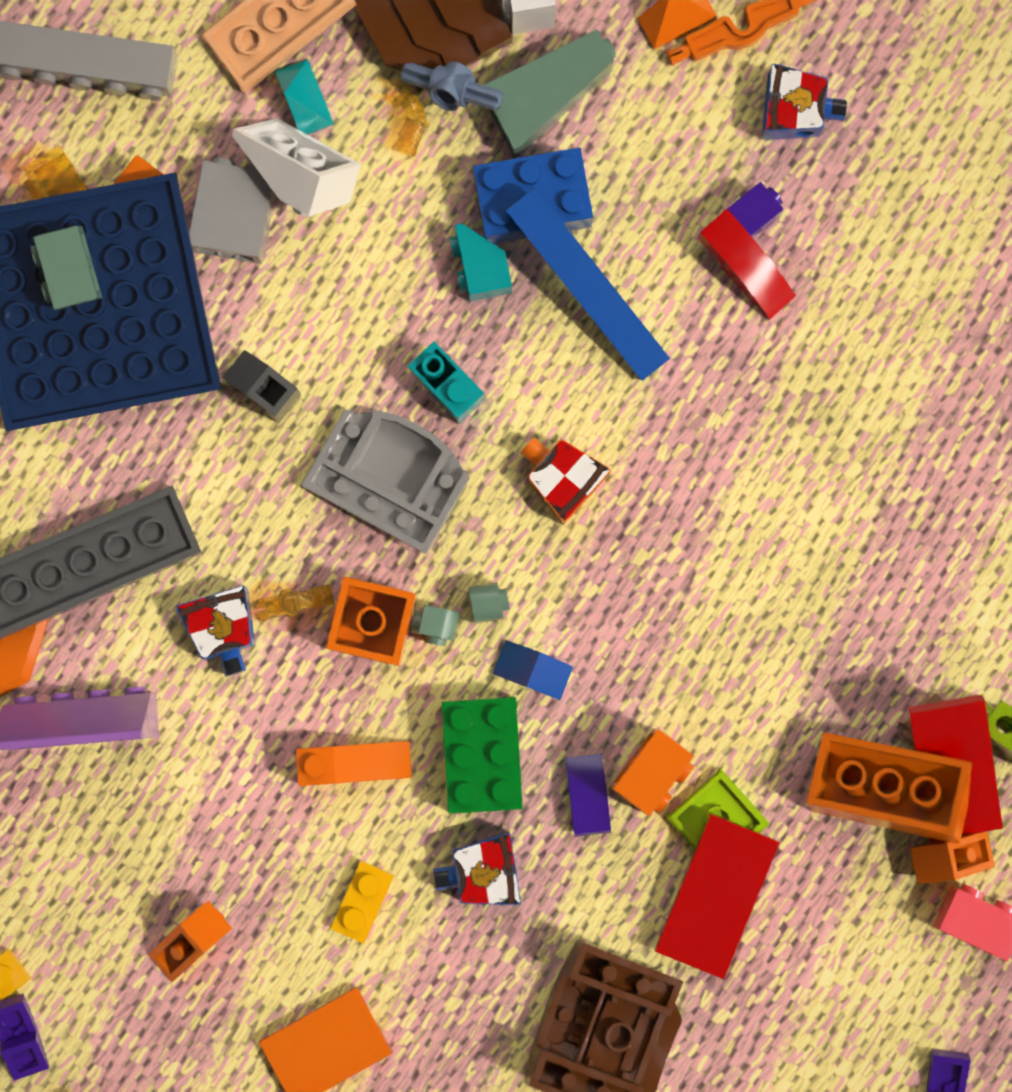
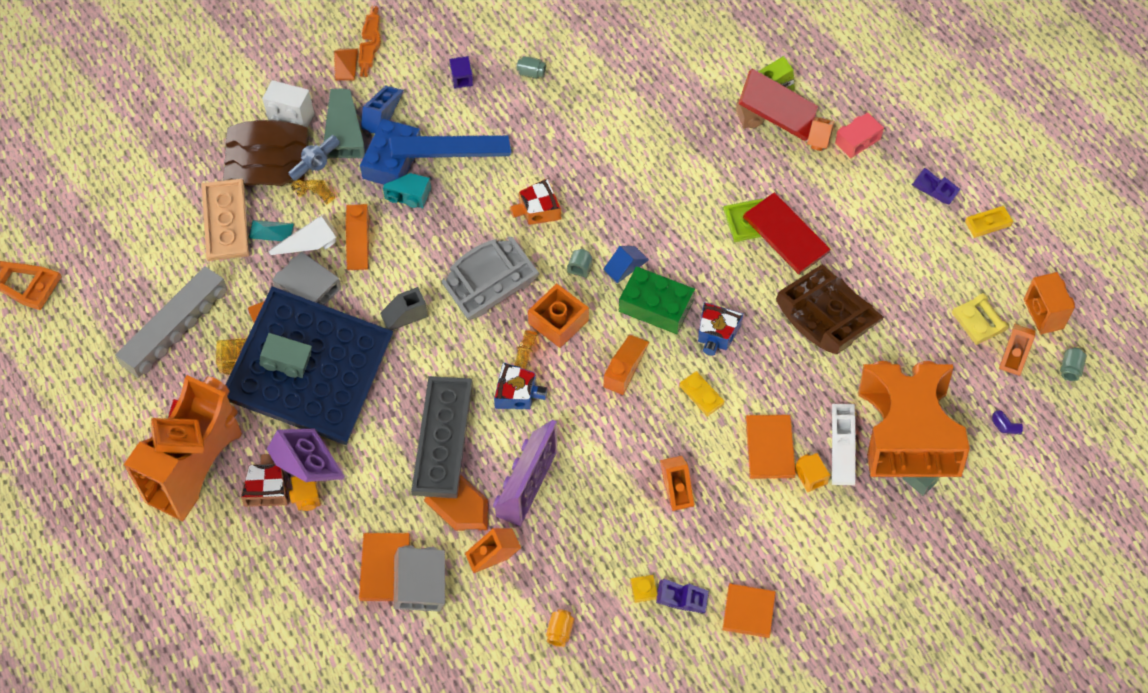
camera: 60 degrees left, 25 degrees down
(355, 237) = (357, 236): none -> orange slope
(436, 624) = (578, 289): sand green plate -> none
(446, 382) = (459, 228): teal slope -> none
(588, 795) = (708, 267): dark purple slope -> none
(615, 127) = (380, 107): none -> blue slope
(653, 772) = (708, 227): orange brick -> none
(746, 264) = (482, 85): red slope -> none
(798, 104) = (421, 34): torso -> none
(826, 319) = (531, 67): none -> sand green brick
(890, 787) = (773, 132): orange slope -> none

